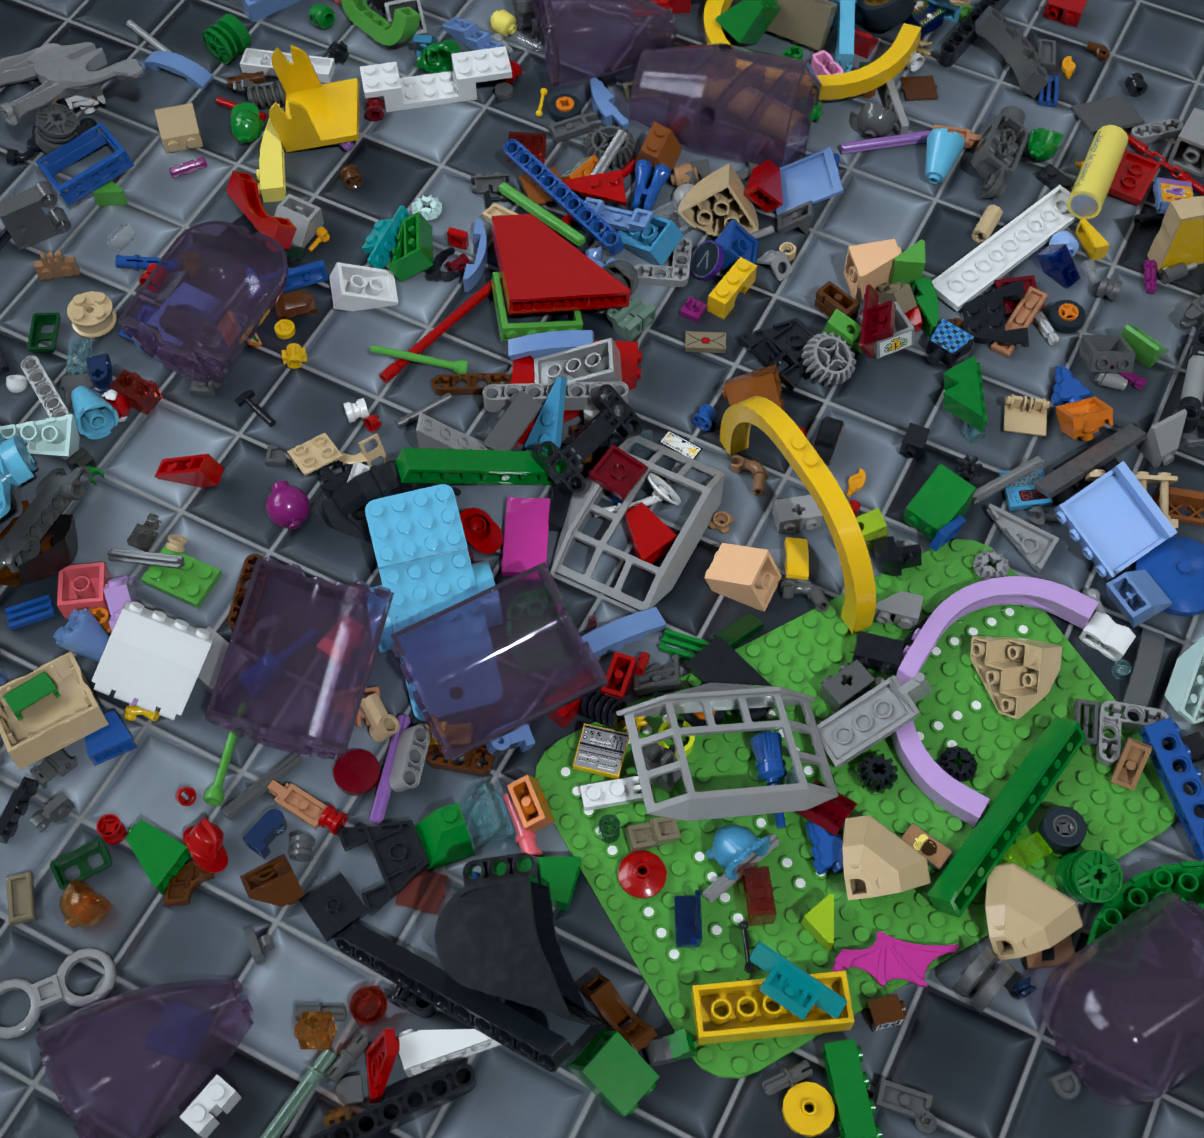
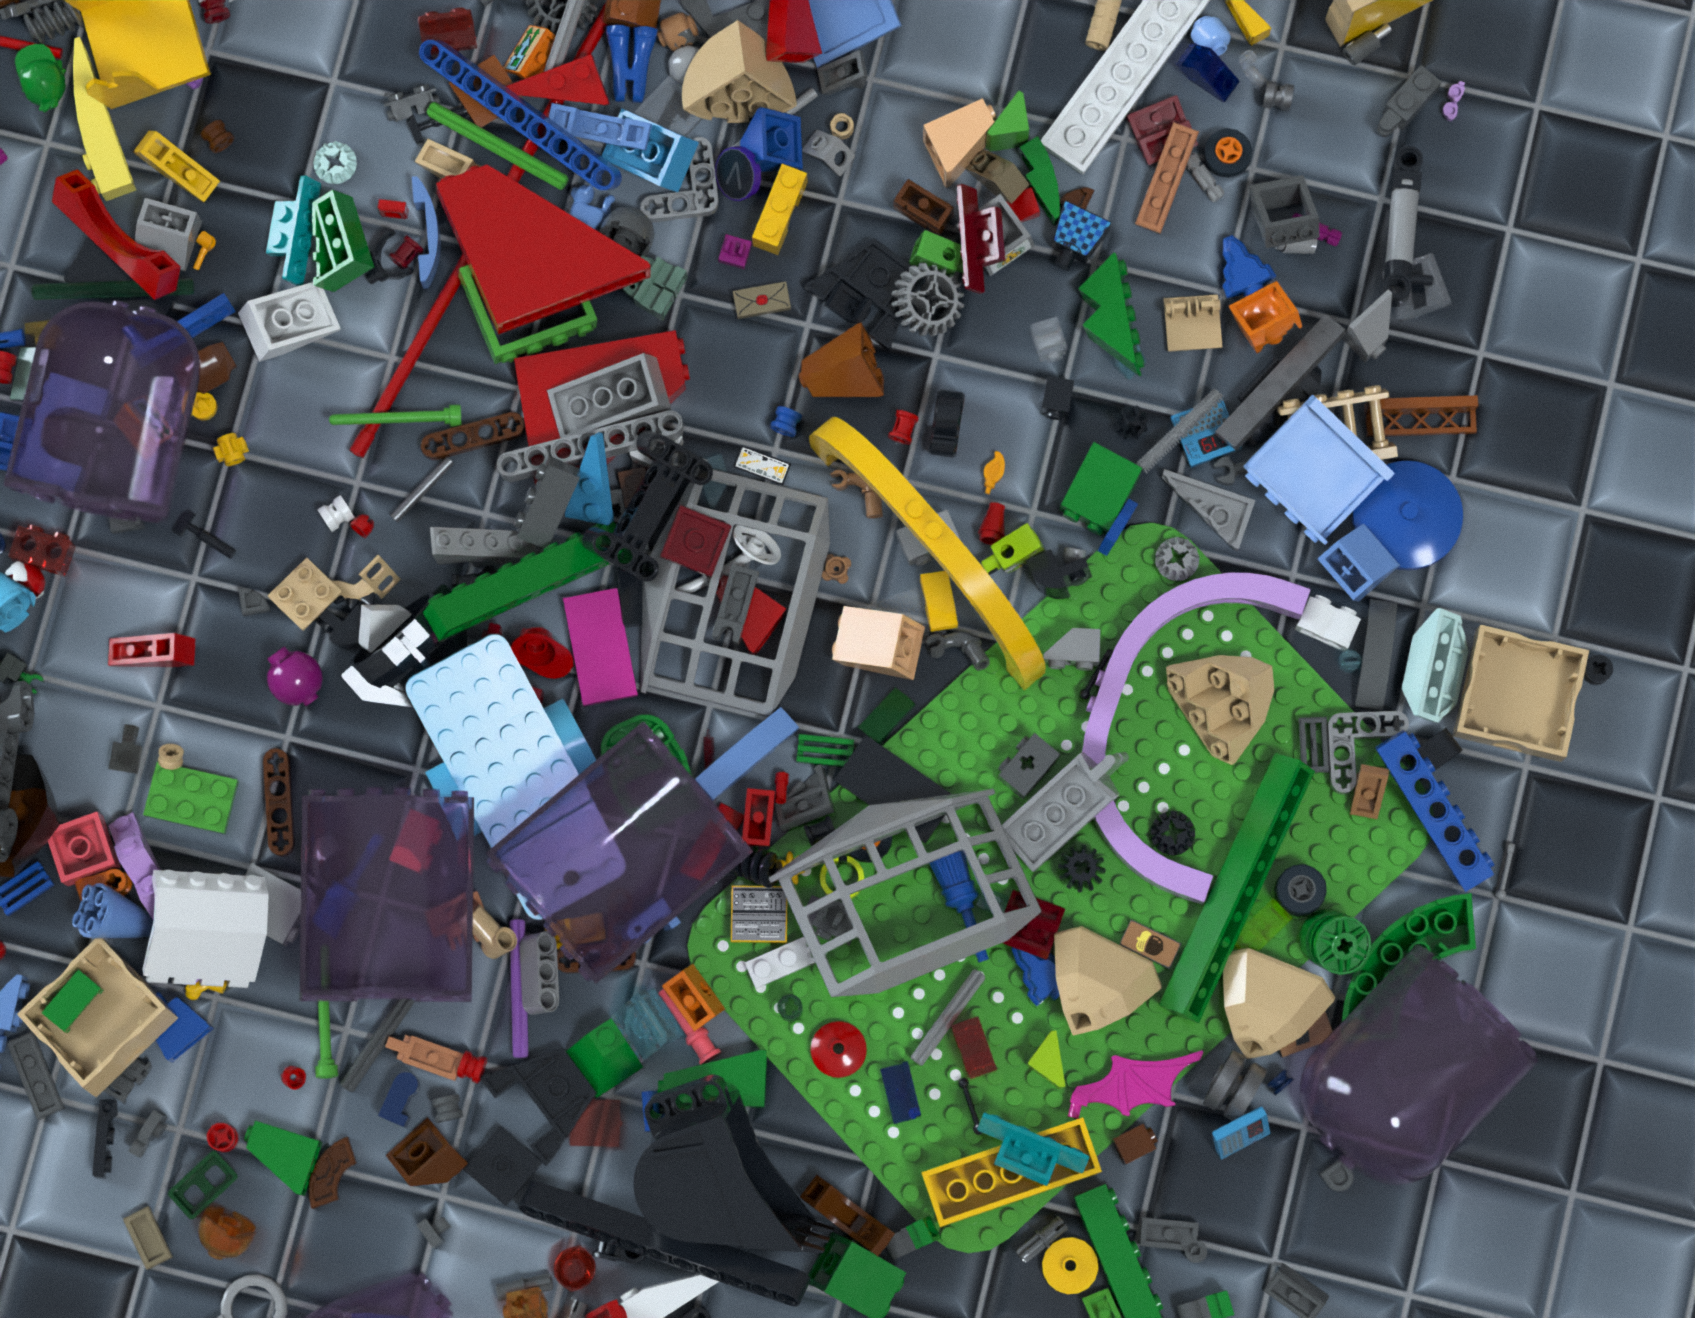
camera: 10 degrees left, 20 degrees up
(146, 558) = (143, 789): axle -> none
(206, 846) = (338, 1132): red piece -> none
(316, 186) = (176, 165): none -> yellow slope
(357, 772) = (488, 1003): dark red tile -> none
(548, 343) = (563, 367): medium blue slope -> none
(638, 521) = (735, 603): none -> dark grey plate
(652, 834) = (829, 1008): dark tan slope -> none
(733, 845) = (937, 1000): dark azure hair -> none
(878, 653) = (1057, 714): black brick -> none
(914, 403) = (1048, 340): none -> clear brick
(984, 1021) = (1241, 1132): none -> dark azure tile
(986, 318) = (1122, 181): black wing -> none
(1095, 594) = (1305, 570): light grey piece -> none
(1147, 349) = (1332, 176): bright green slope -> none
(1150, 276) = (1331, 59): magenta axle -> none

